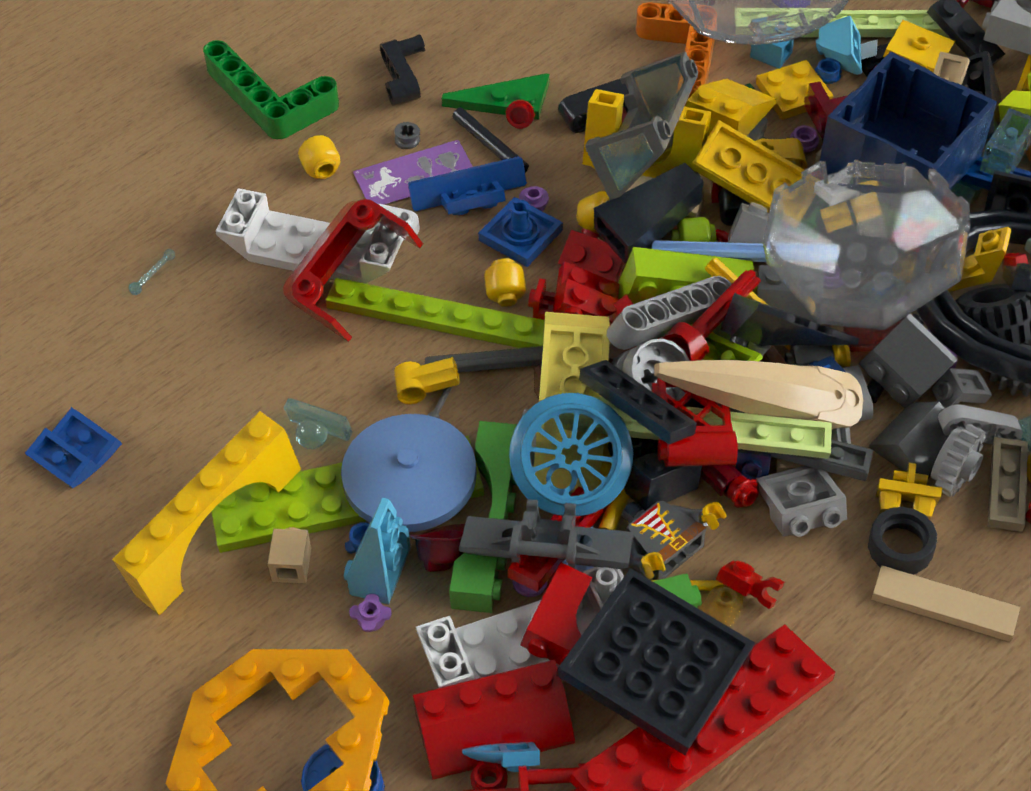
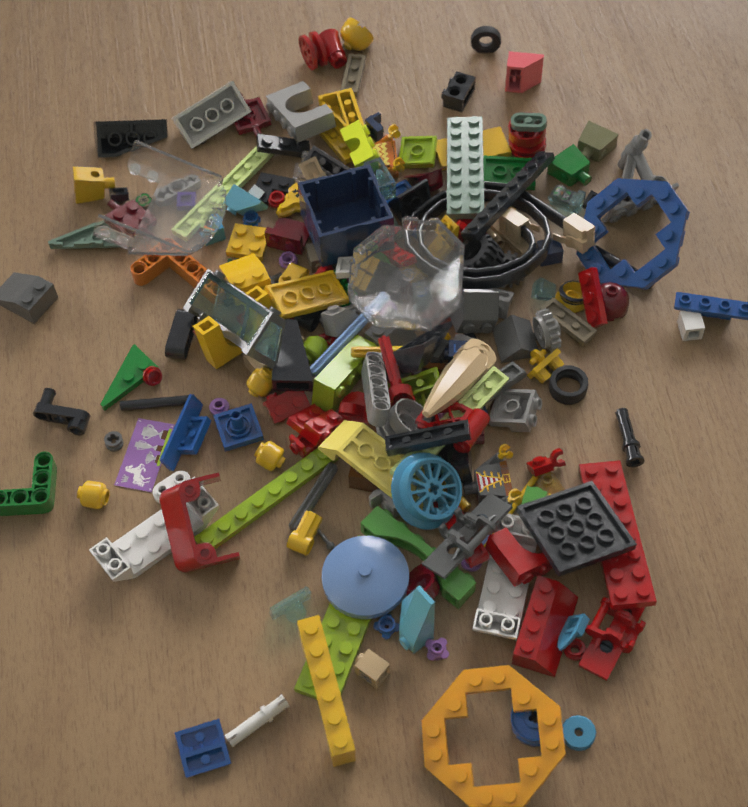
camera: 55 degrees left, 5 degrees up
(135, 287) = (104, 650): clear light blue hinge -> none
(154, 482) = (257, 720): none -> white pin
(743, 491) = (491, 432): red plate -> none
(874, 671) = (630, 444): none -> black pin
(918, 45) = (277, 172): yellow plate -> none
(946, 603) = (612, 391): tan tile -> none
(992, 422) = (531, 308): light grey beam -> none

